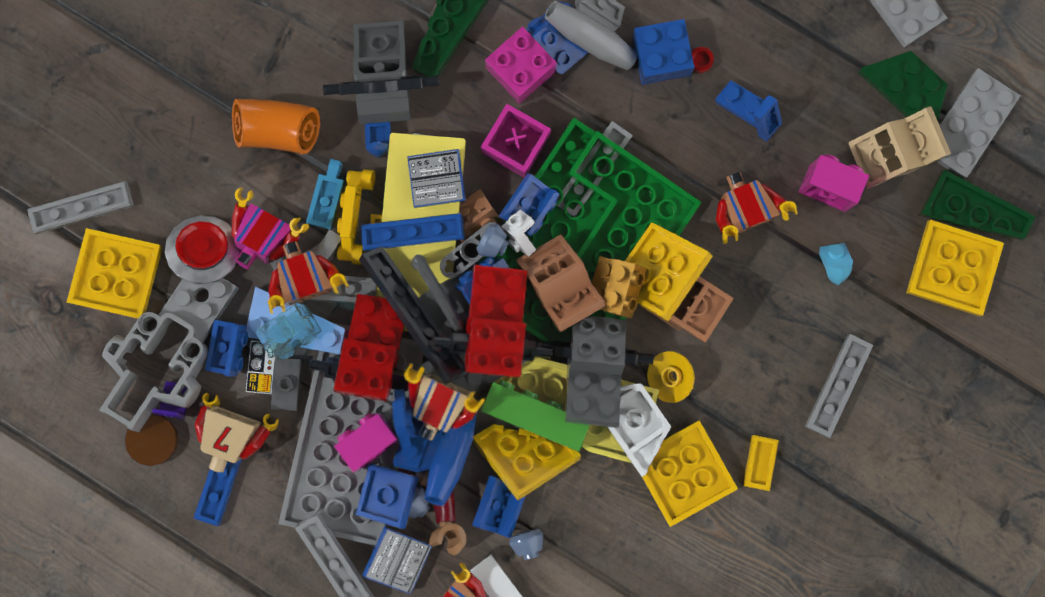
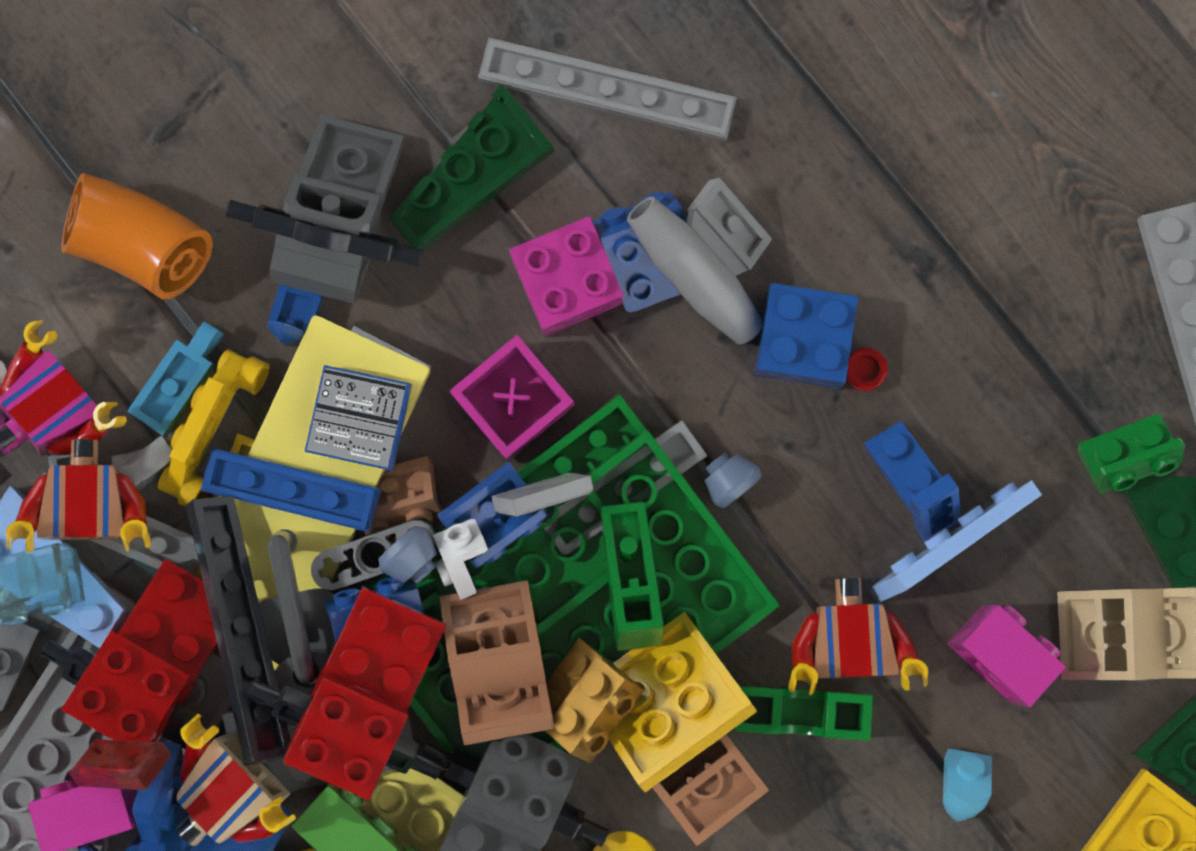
camera: 20 degrees right, 0 degrees up
(378, 405) = (120, 764): none -> clear red plate
(553, 183) = (542, 494): none -> light grey tile
(617, 212) = (631, 576): none -> green slope
(649, 143) = (730, 478): none -> sand blue cone
(740, 253) = (820, 714): none -> green arch
(779, 136) = (946, 545): none -> light blue wing
(861, 53) = (1131, 453): none -> green bracket

